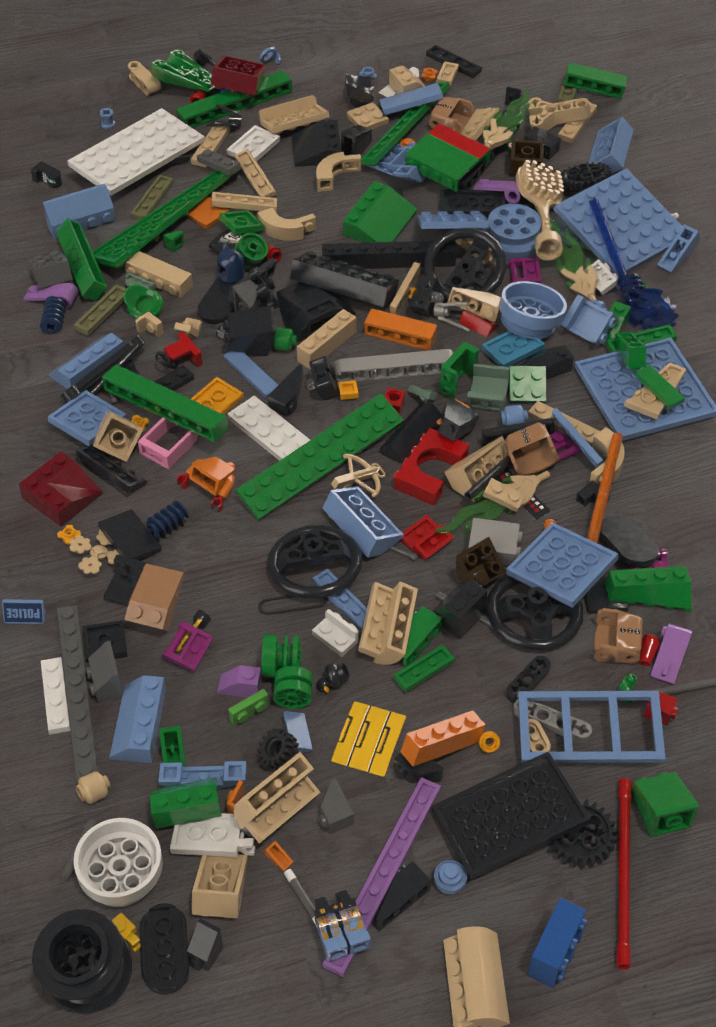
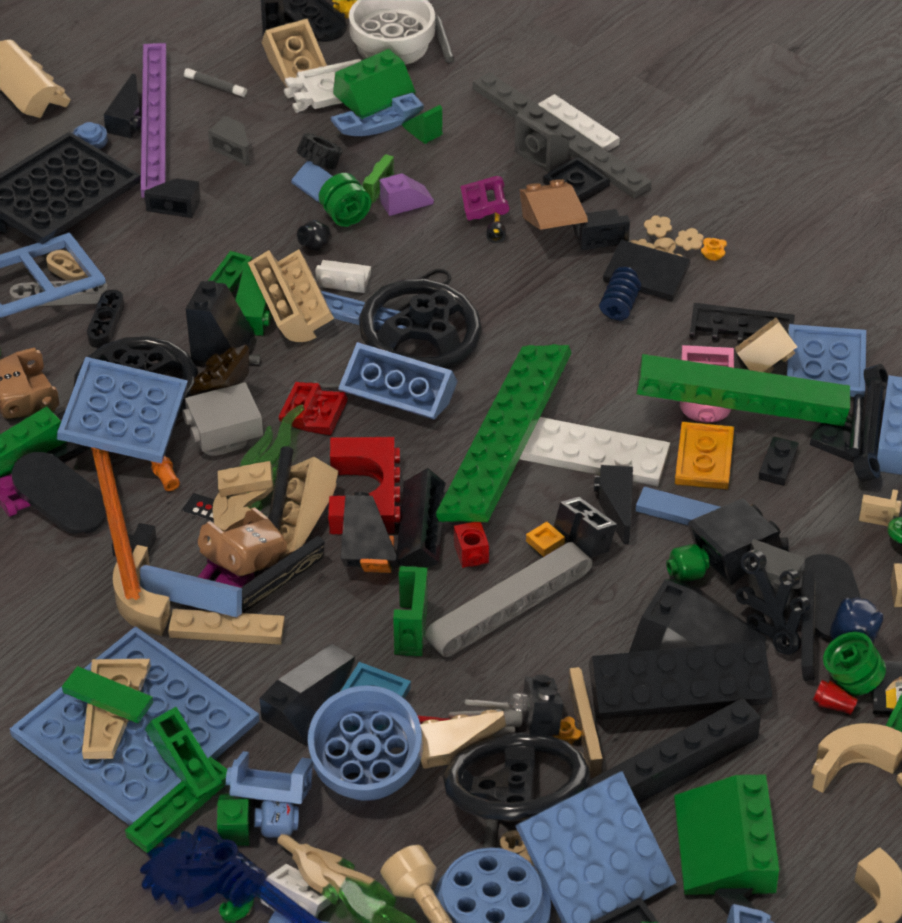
camera: 150 degrees right, 5 degrees down
(23, 611) = (681, 167): slope -> none
(59, 489) = (769, 276): dark red slope -> none
(92, 787) = (468, 69): tan head -> none
(139, 720) = (475, 132): medium blue slope -> none
(182, 347) = (799, 491): red piece -> none
(189, 326) = (825, 520): tan bracket -> none
(213, 476) = (612, 356): orange torso -> none
(234, 796) = (328, 109): orange bracket -> none
(276, 798) = (287, 108): tan brick -> none
(277, 855) = (265, 98): orange piece -> none
(279, 655) = (378, 214): green wheel -> none
(327, 338) = (630, 590): tan brick -> none
(340, 918) = (162, 56): hips -> none
(347, 480) = (443, 425): tan piece -> none
(368, 738) = (243, 213): yellow sticker -> none
(400, 329) = (540, 653): orange brick -> none
(424, 394) = (440, 576): sand green plate -> none
(442, 738) = (158, 208): orange brick -> none
(488, 387) = (356, 617): sand green panel -> none
(491, 747) = (114, 245): light orange plate -> none
(513, 415) = (297, 592): medium blue head -> none
(527, 384) = (306, 645): plate -> none
(530, 269) = (415, 835): magenta plate -> none

